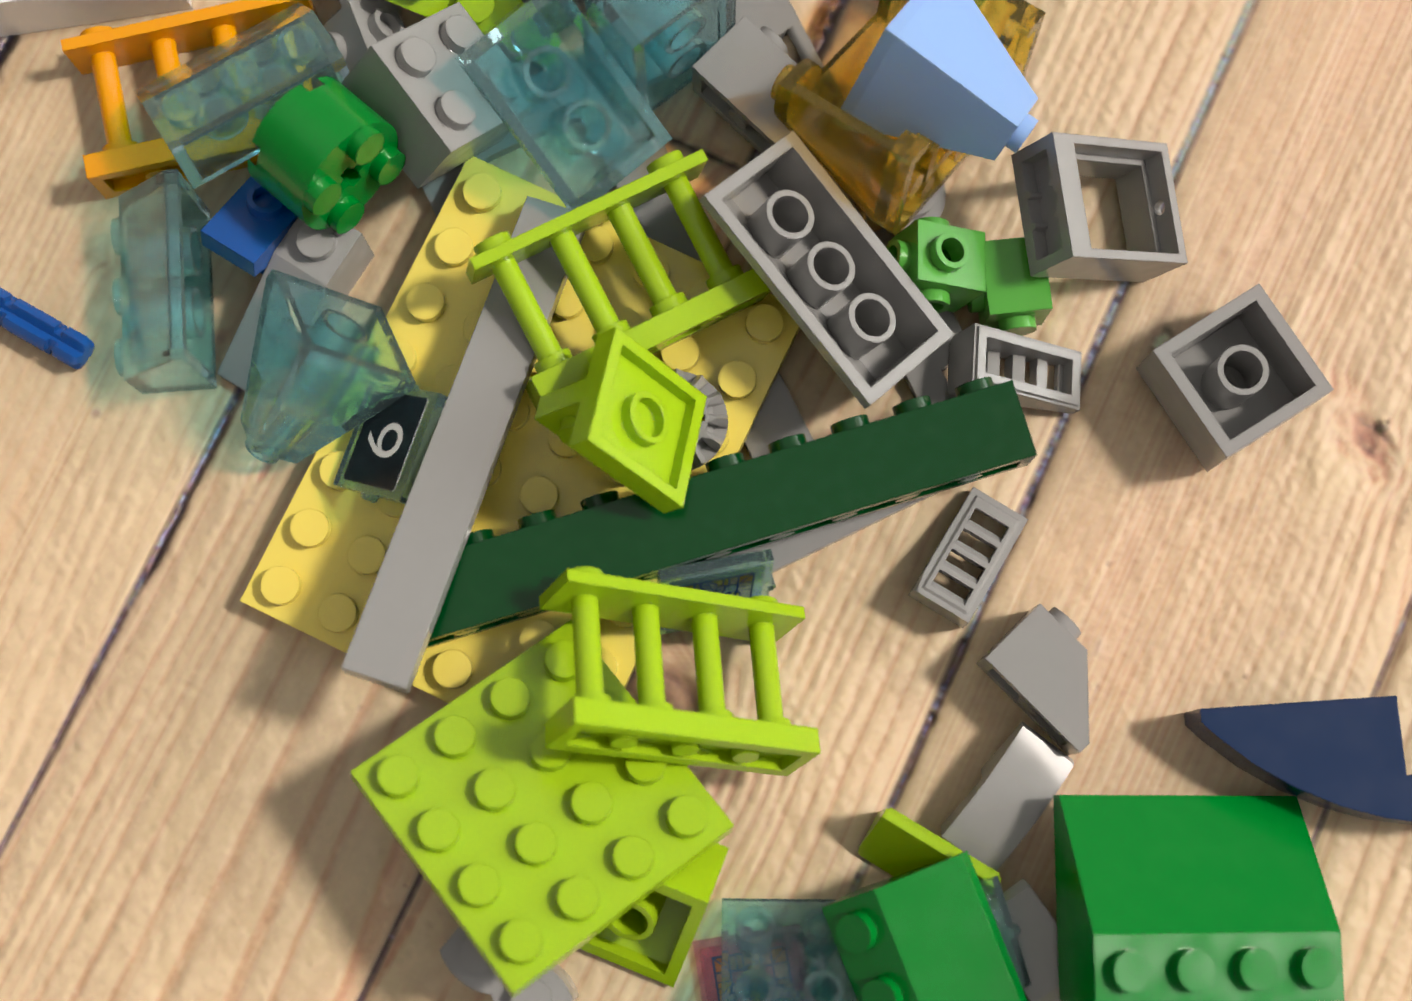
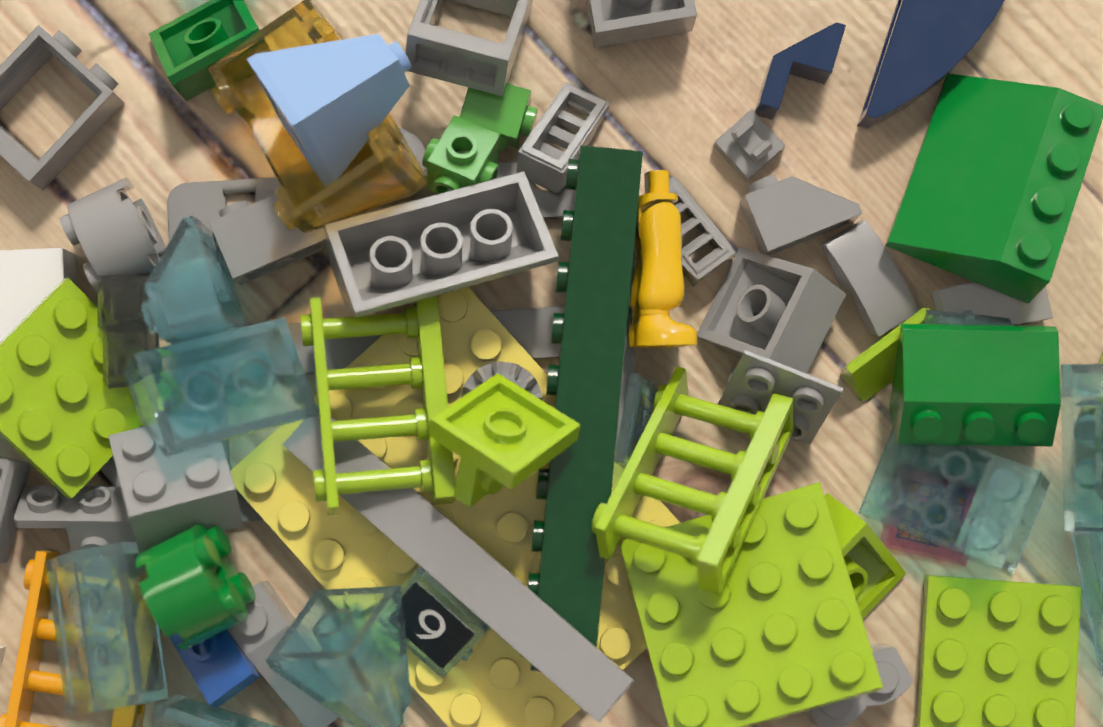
camera: 70 degrees left, 5 degrees up
(826, 704) = (757, 378): none -> light grey hinge
(905, 539) = (658, 273): none -> yellow piece
(914, 698) = (771, 310): none -> light grey slope
(1102, 592) = (749, 145): none -> light grey tile
(1236, 616) = (808, 59): none -> dark blue slope

